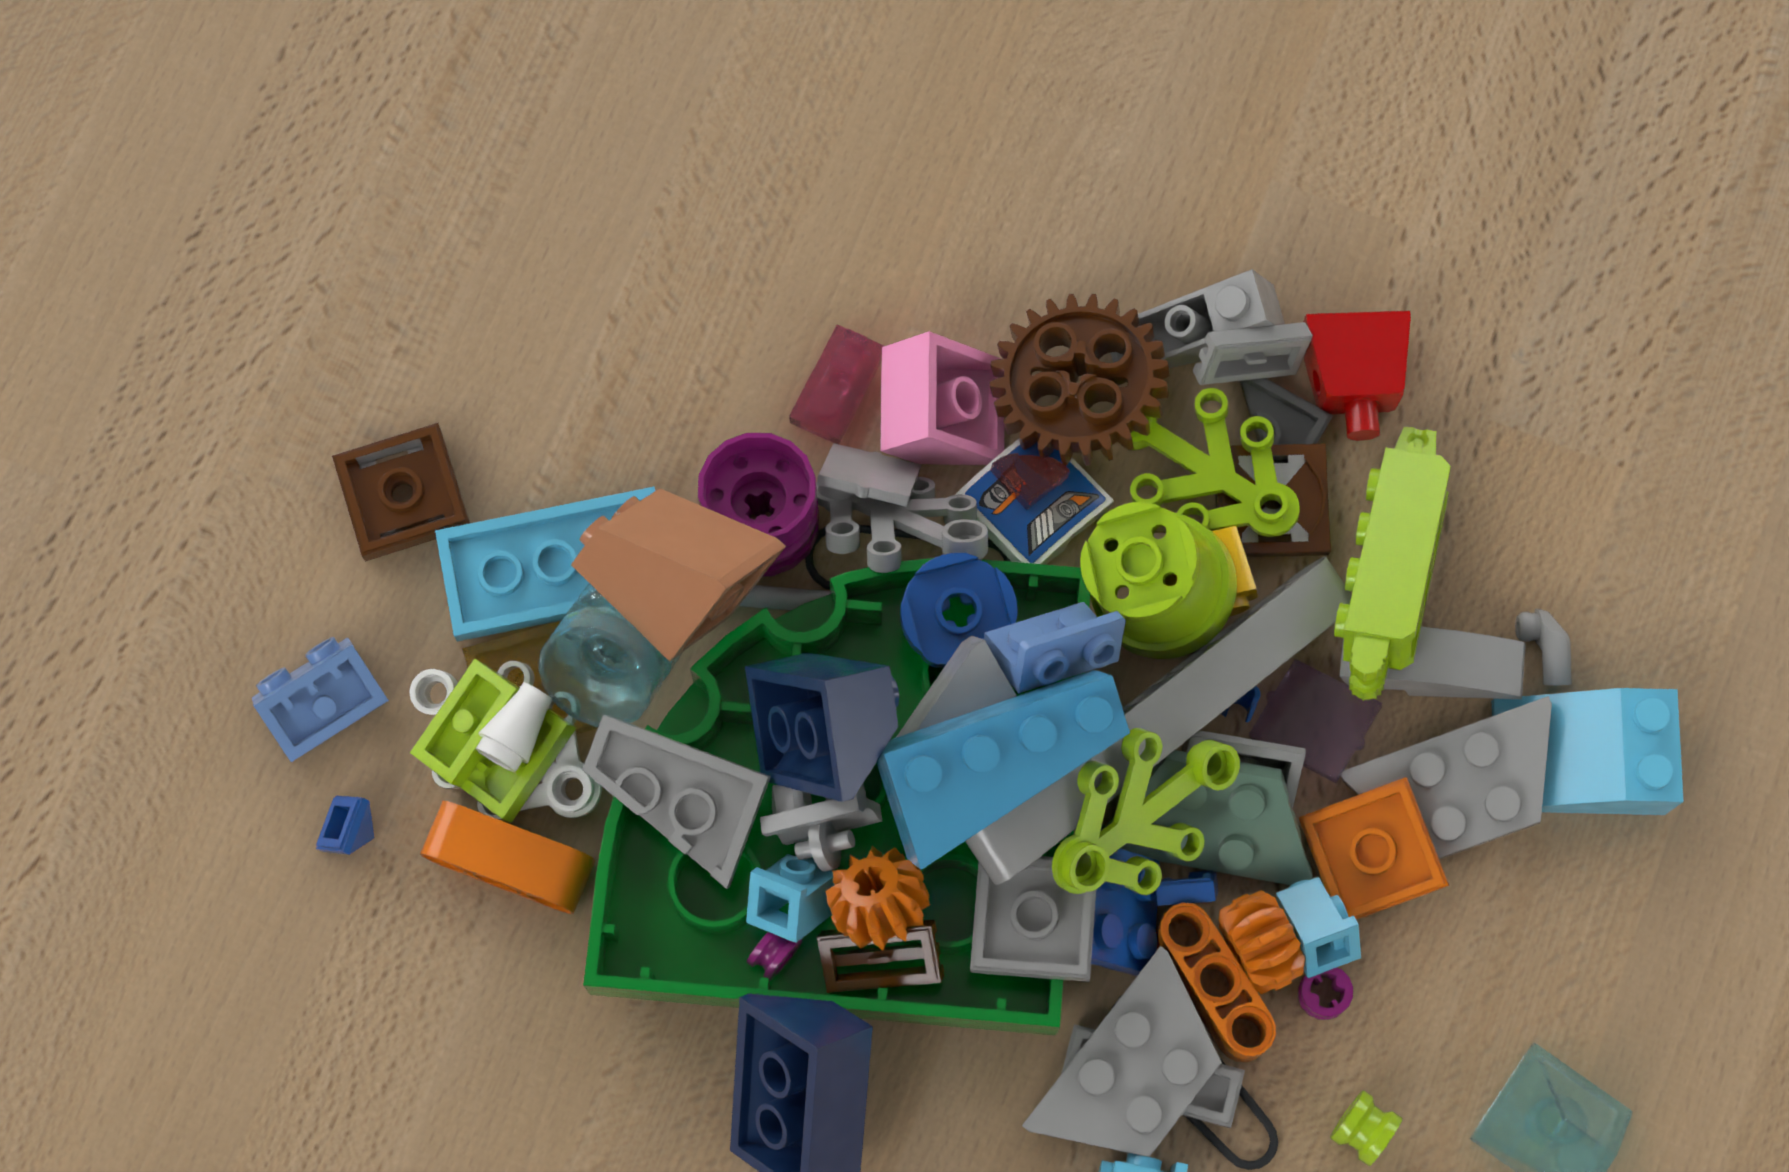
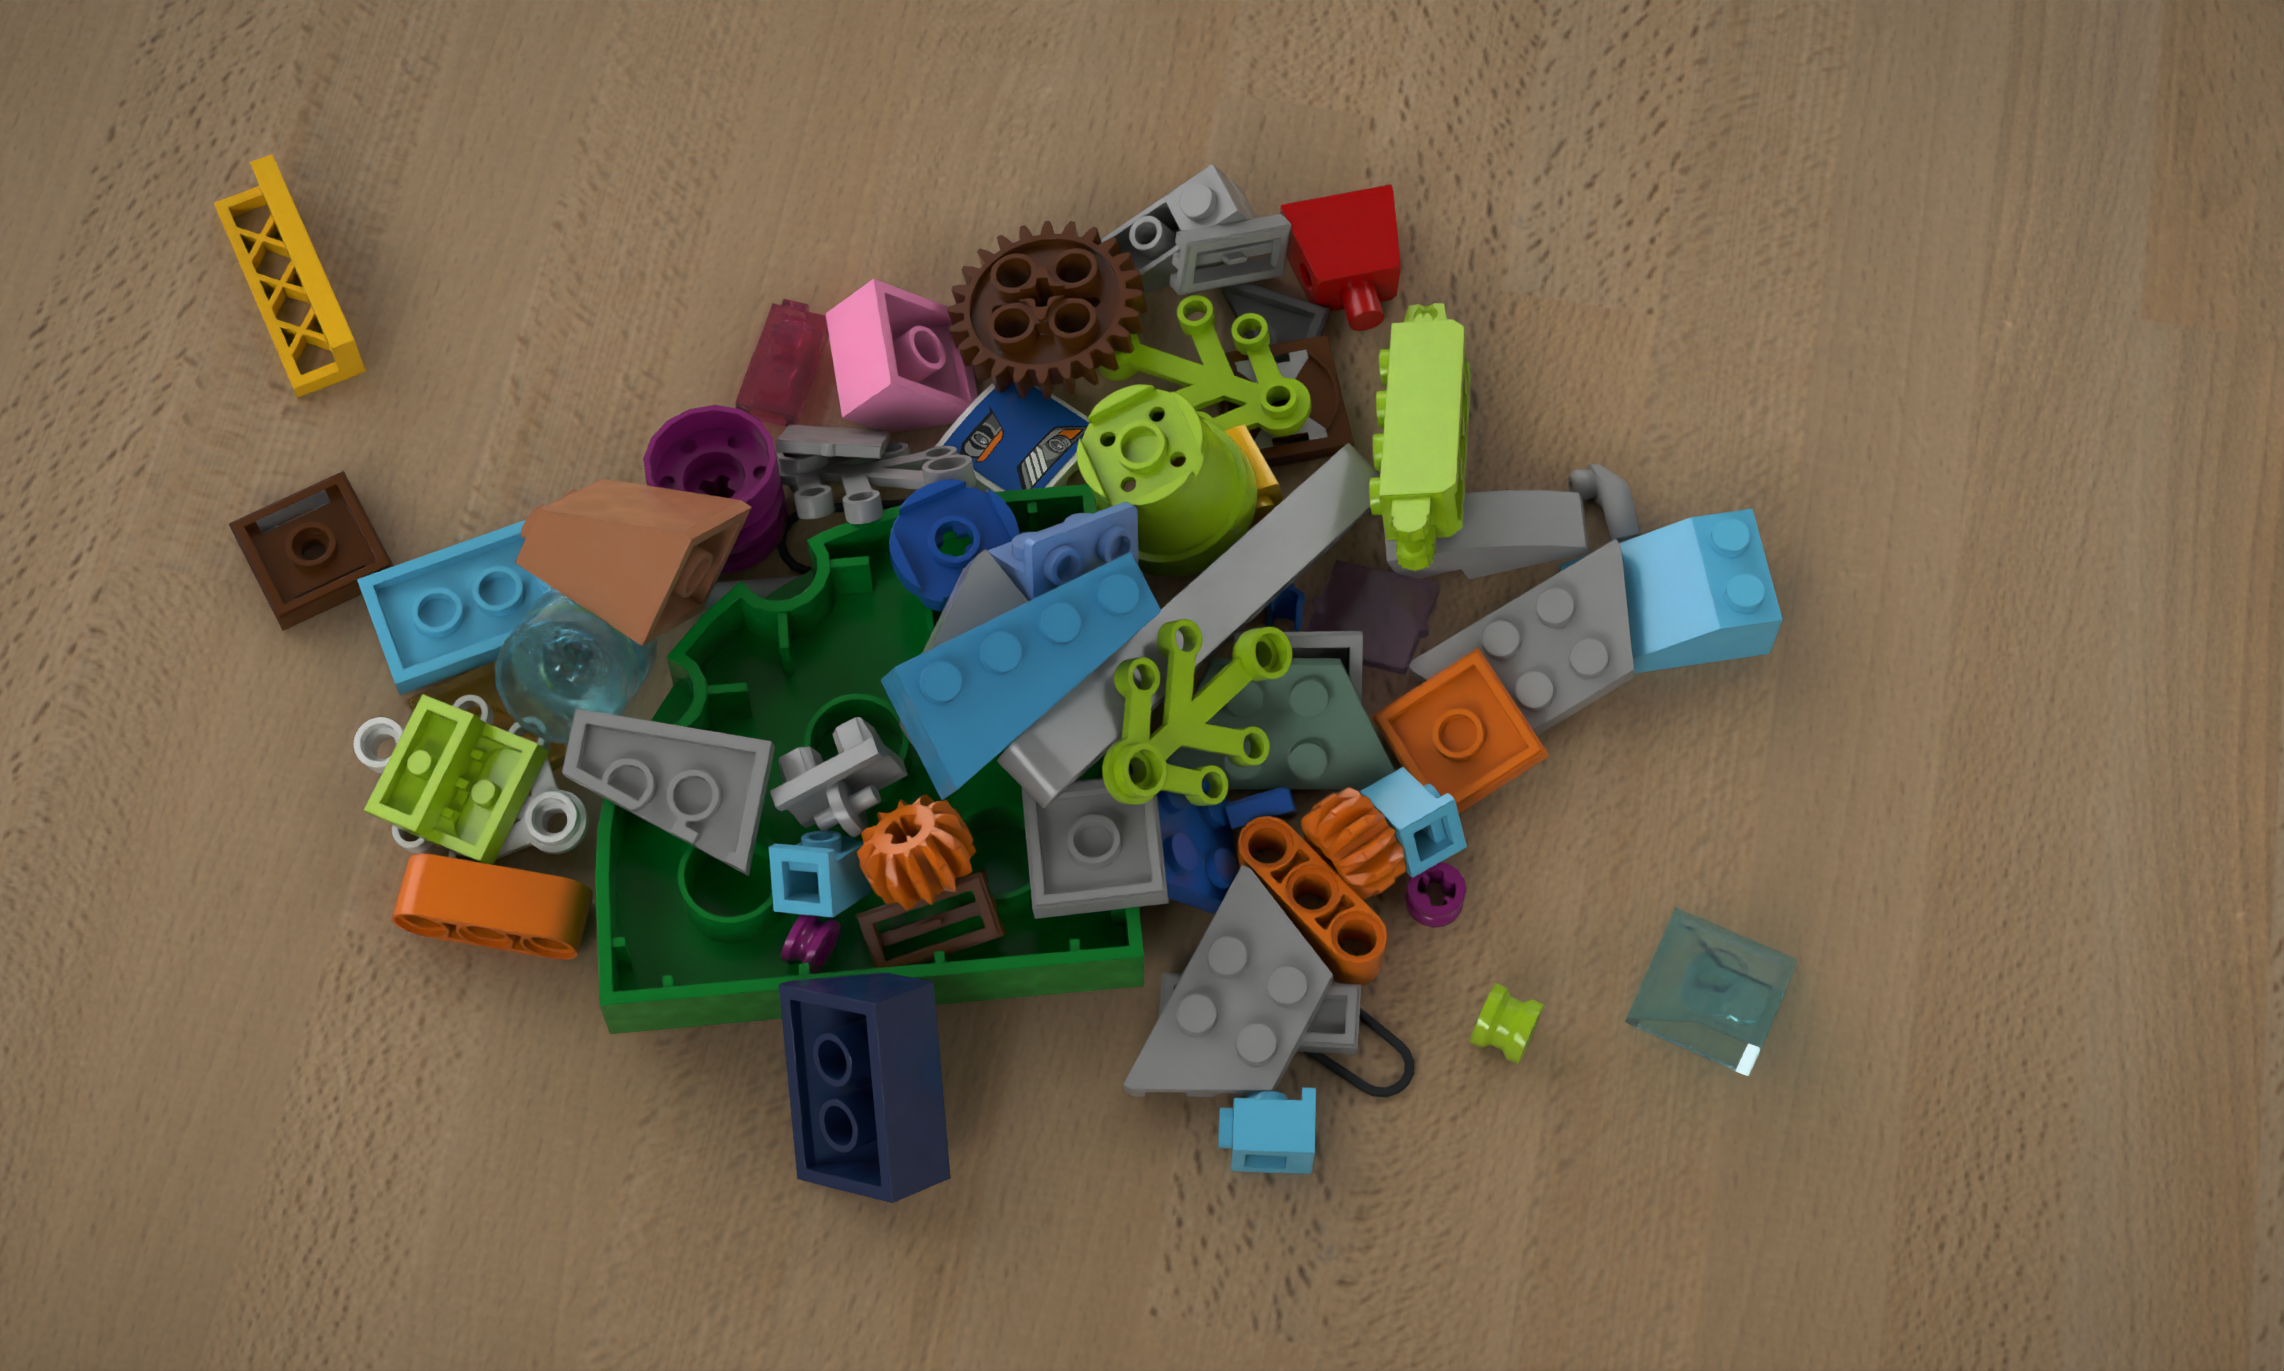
camera: 10 degrees left, 10 degrees down
(317, 697) = (250, 777): medium blue bracket -> none
(346, 826) = (303, 905): blue slope -> none
(430, 216) = (304, 265): none -> yellow fence
(515, 728) = (478, 758): white cone -> none
(821, 721) = (819, 661): dark blue slope -> none
(1029, 476) = (1010, 416): tile -> none

